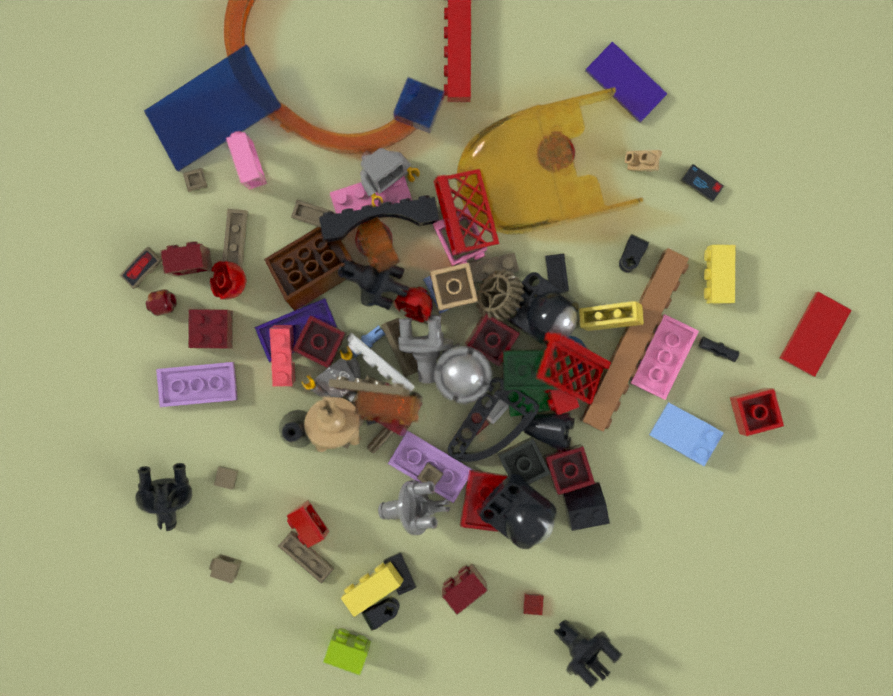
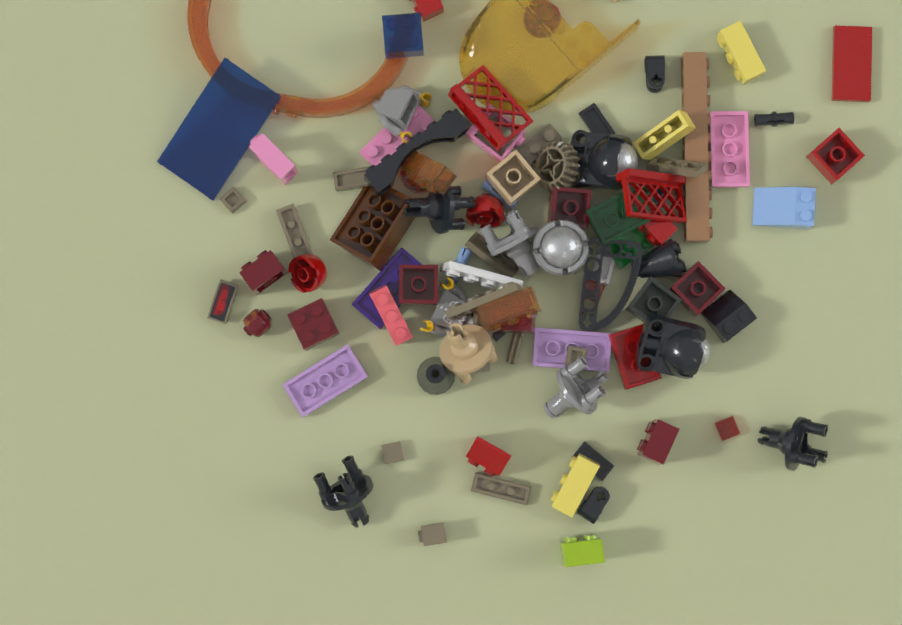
camera: 30 degrees left, 5 degrees down
(607, 351) = (676, 167): none -> dark tan tile

